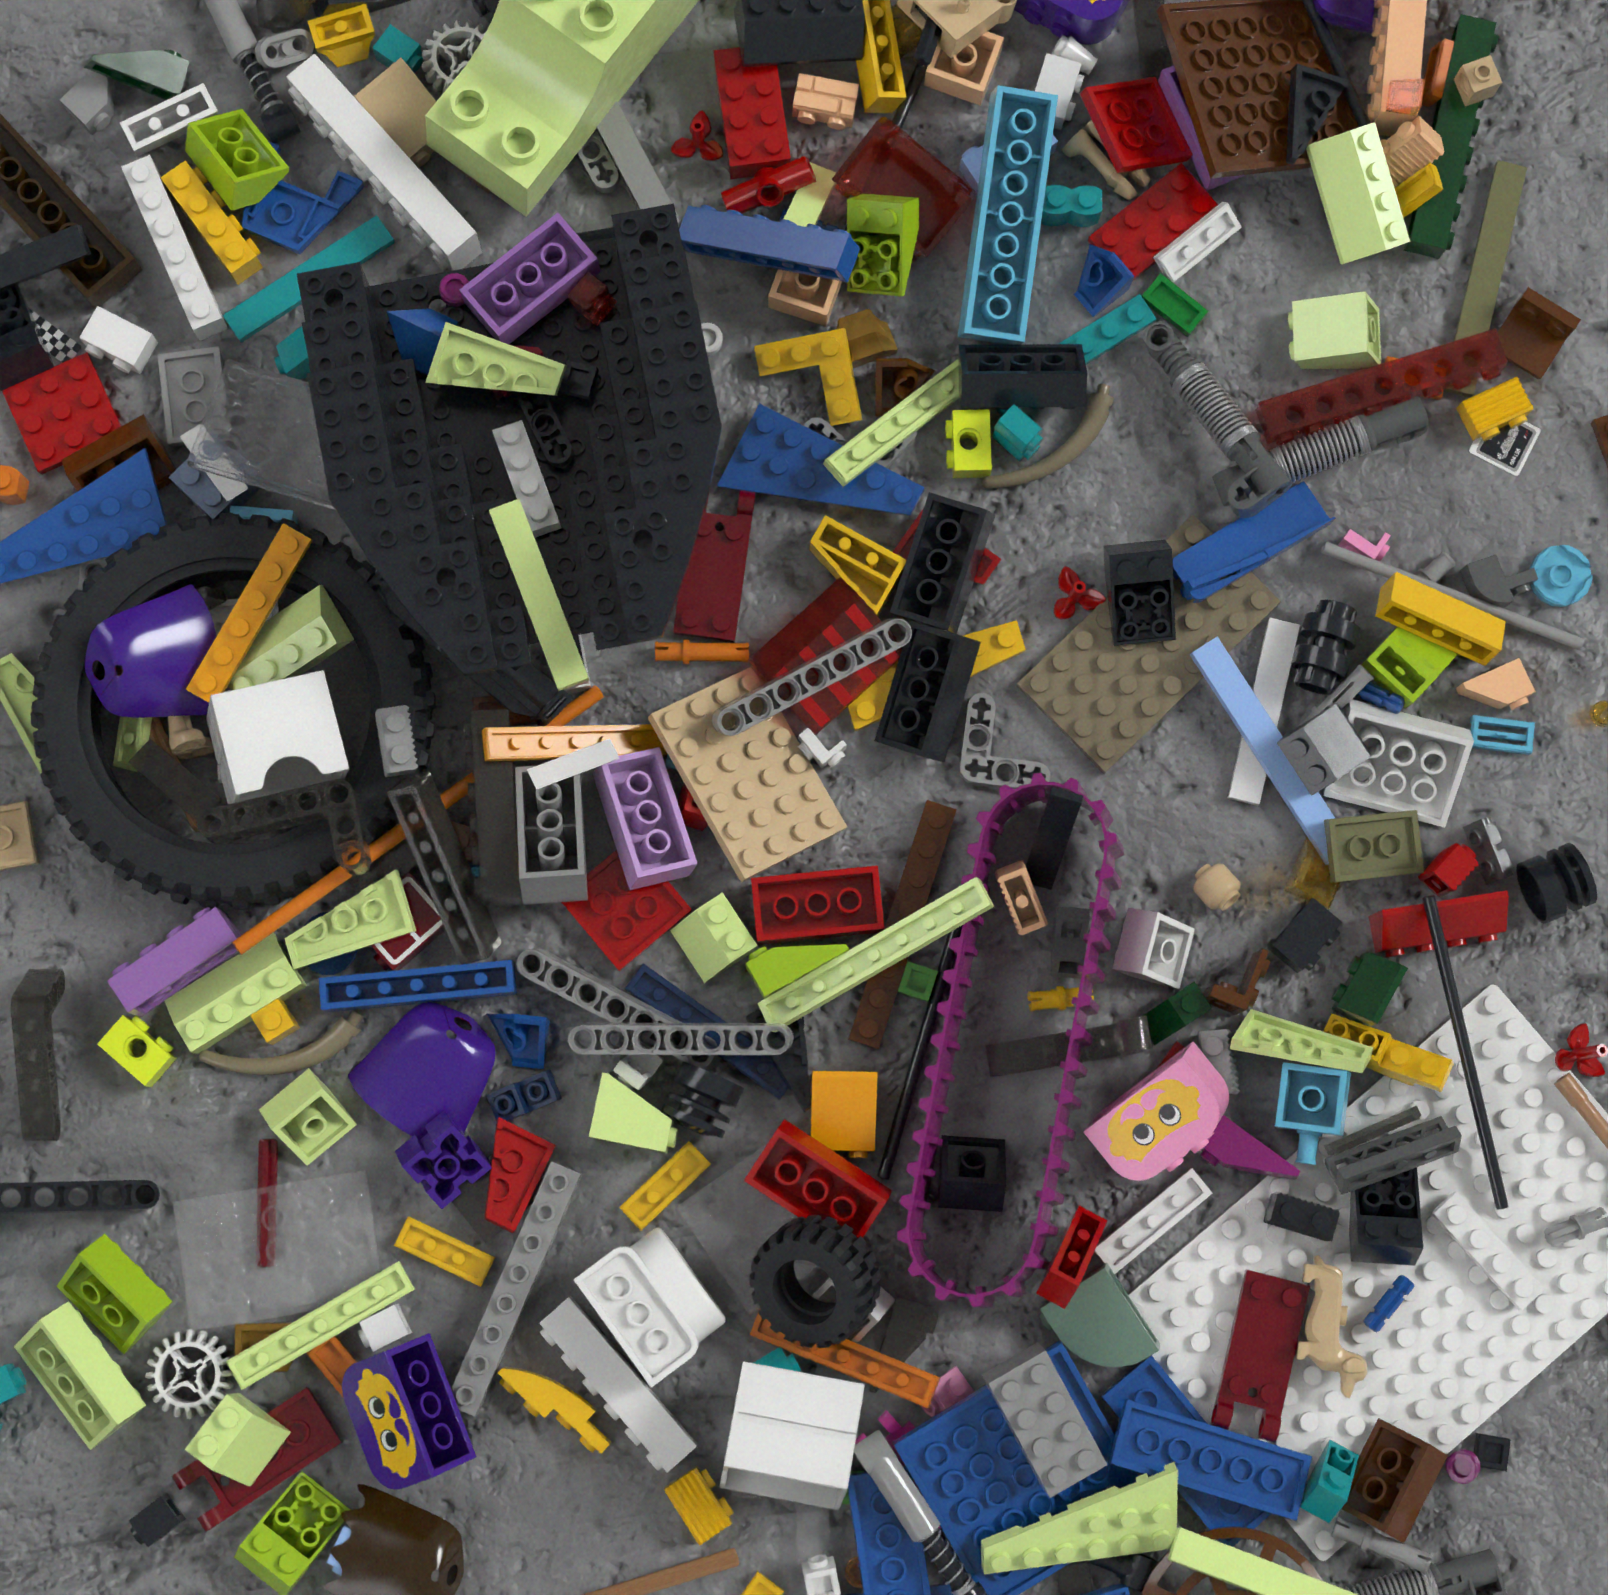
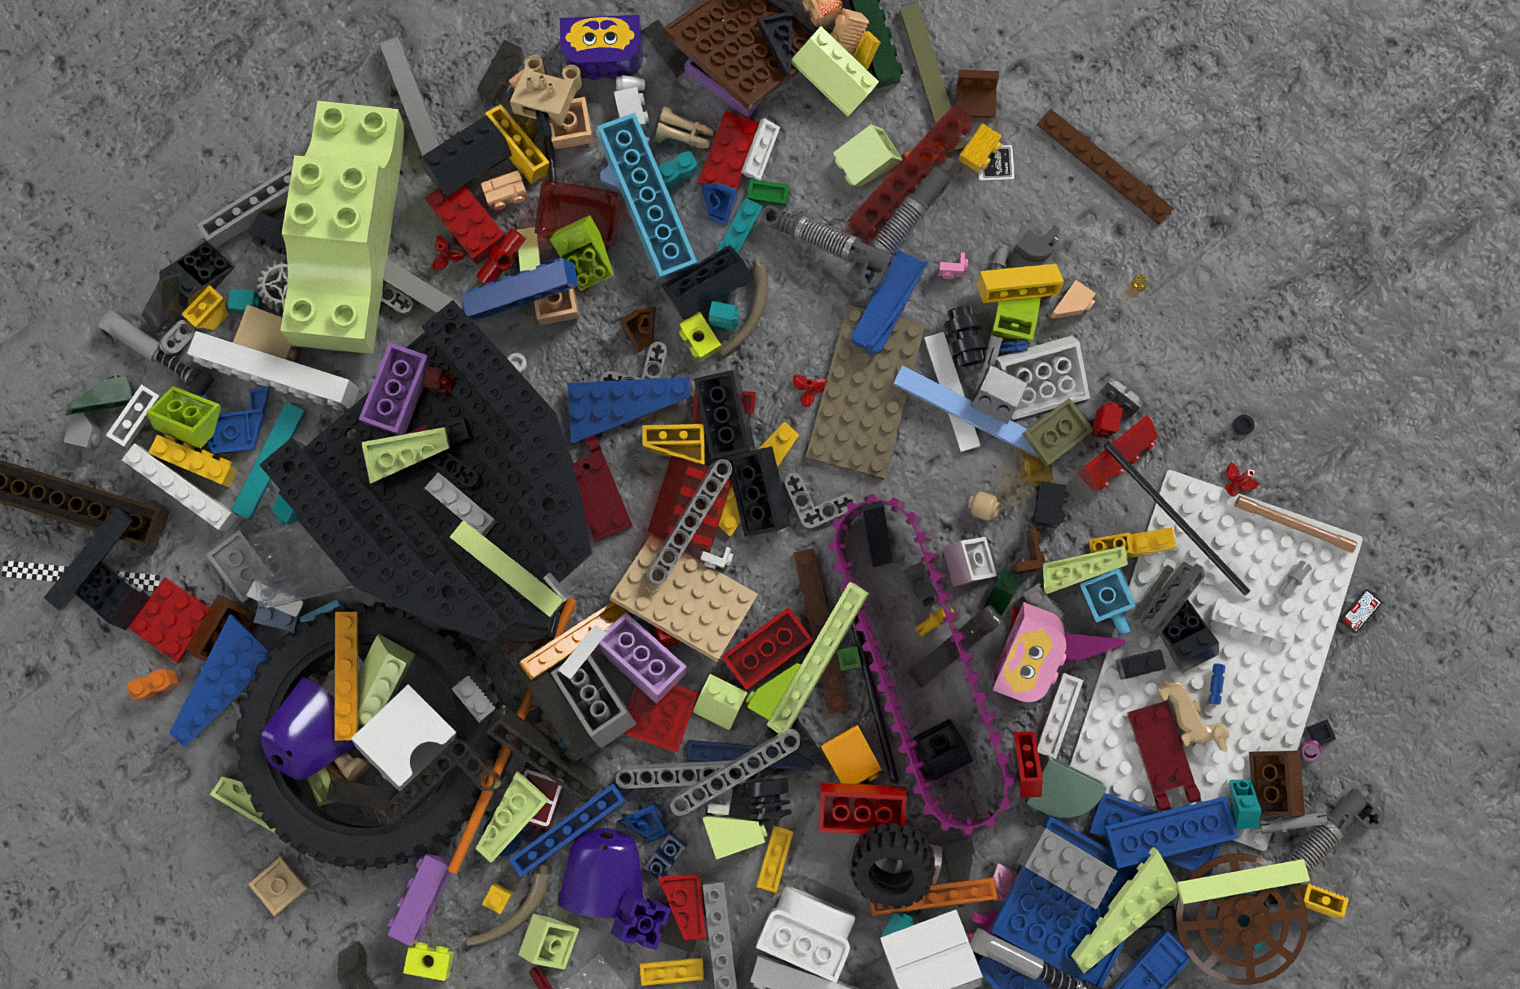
camera: 20 degrees left, 0 degrees up
(118, 340) = (179, 560): white brick -> none
(233, 992) = (464, 897): yellowish green slope -> none
(418, 334) = (350, 457): blue slope -> none
(450, 287) = (352, 420): magenta tile -> none
(710, 652) = (617, 543): orange pin -> none
(832, 354) = (589, 331): yellow plate -> none
(867, 337) = (604, 314): pearl gold slope -> none
(895, 426) = (652, 351): yellowish green tile -> none
(1021, 897) = (879, 577): light nougat brick -> none
(1136, 124) = (687, 103): red plate -> none
(1140, 592) = (844, 365): black slope -> none
(1368, 988) = (1101, 514): dark green slope -> none
(1499, 612) = (1049, 260): light grey piece -> none
(1503, 747) = (1106, 321): medium azure tile -> none
(1556, 883) = (1170, 393): black wheel -> none
(1562, 575) = (1071, 219): medium azure tile -> none

